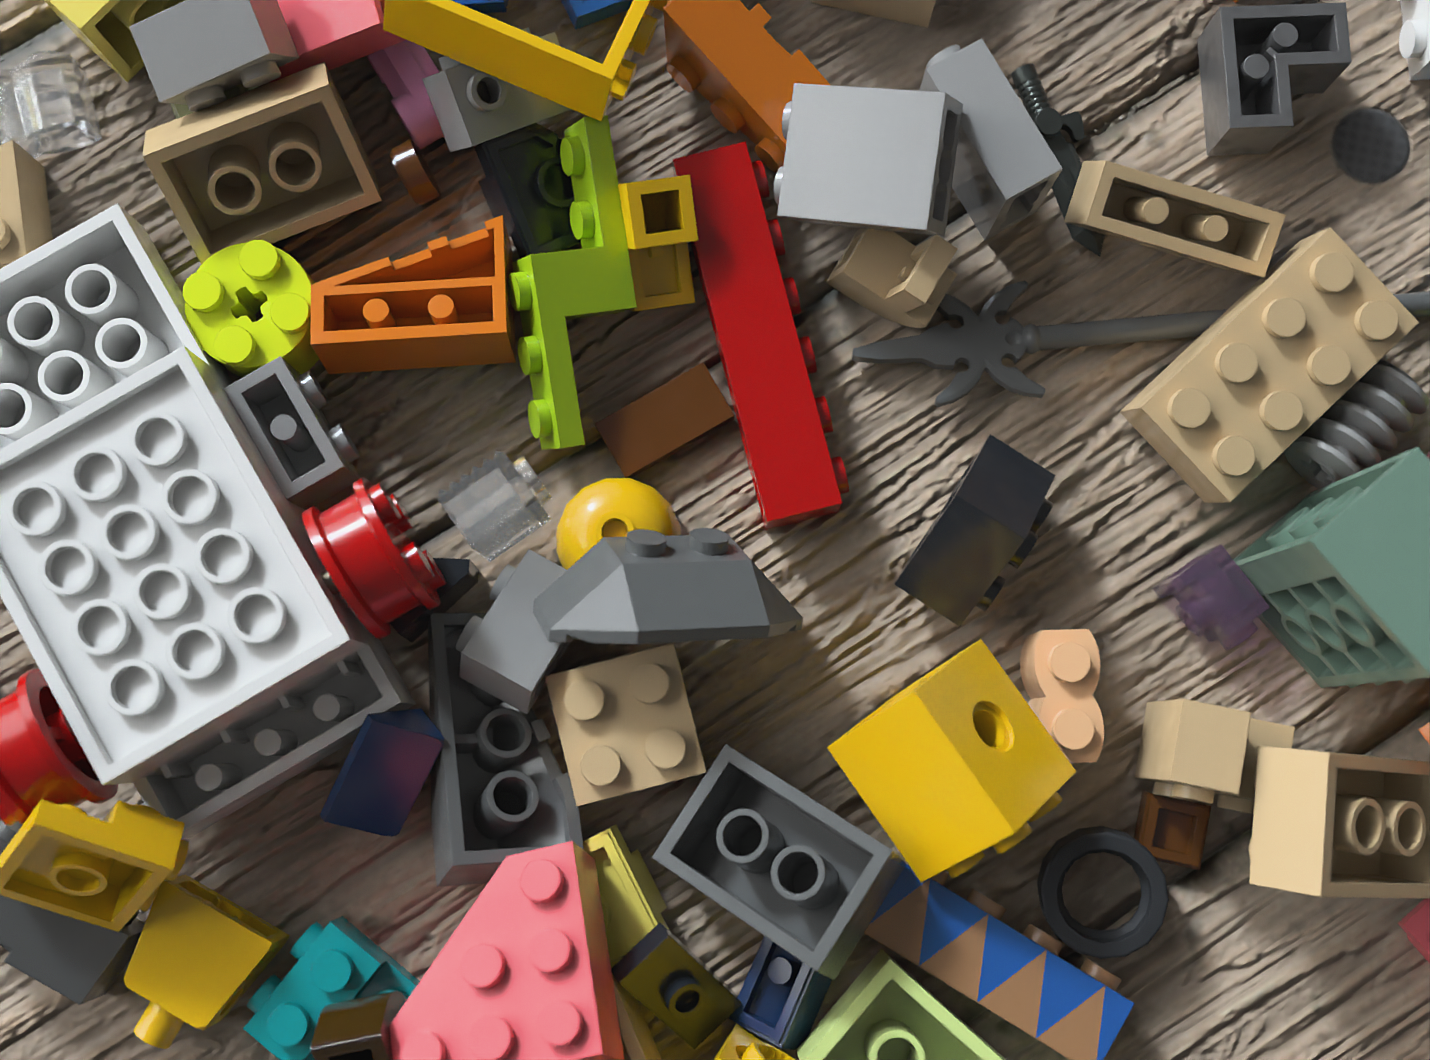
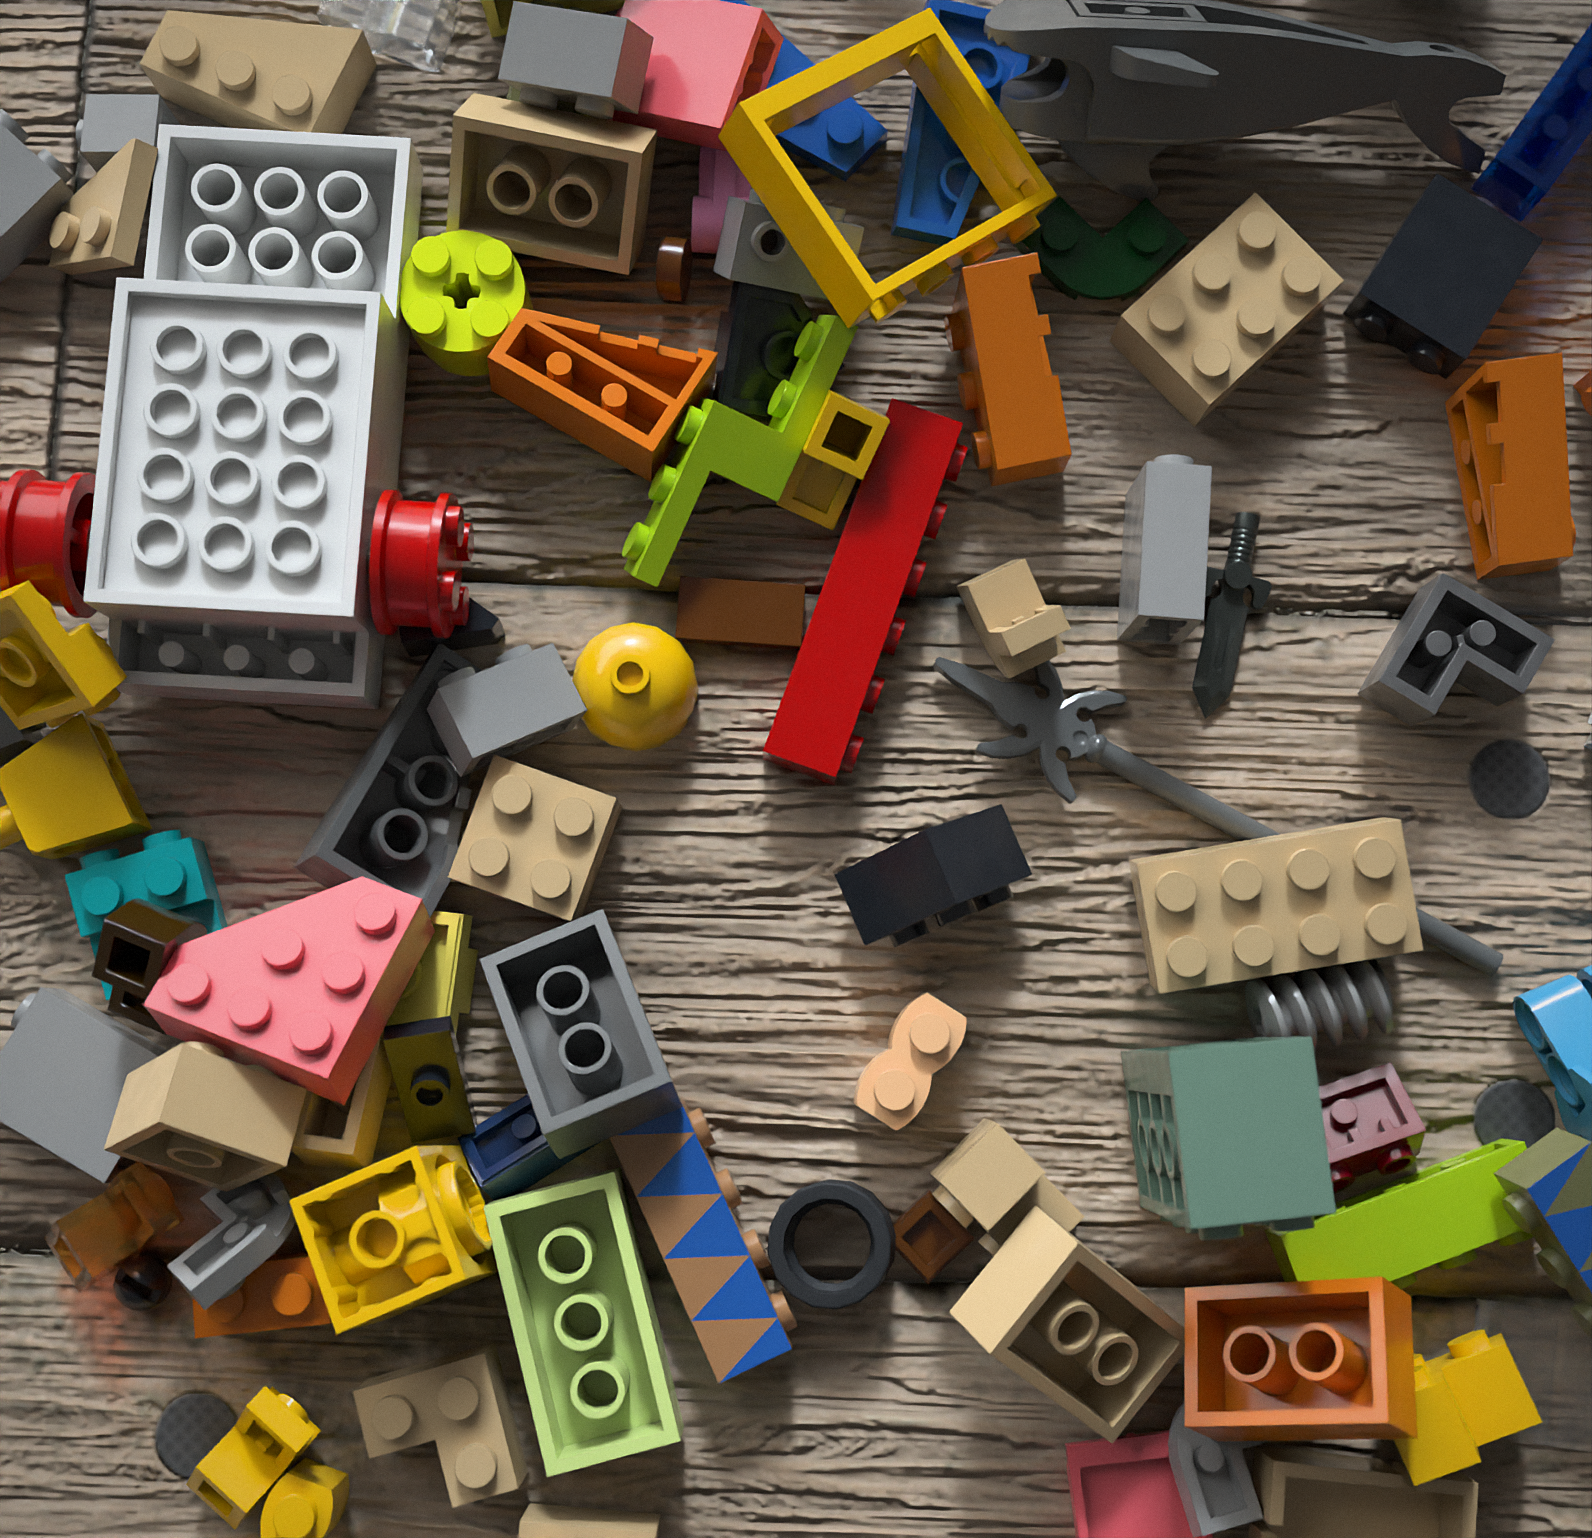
camera: 30 degrees right, 0 degrees up
(293, 434) = (428, 421): light grey brick -> none
(384, 772) = (313, 745): dark blue slope -> none
(497, 504) = (550, 589): clear brick -> none
(664, 592) = (638, 752): dark grey wedge -> none
(868, 158) = (1048, 505): light grey brick -> none
(954, 765) = (776, 1050): yellow brick -> none
(1174, 218) = (1281, 726): tan brick -> none
(1215, 598) = (1096, 1068): clear purple brick -> none

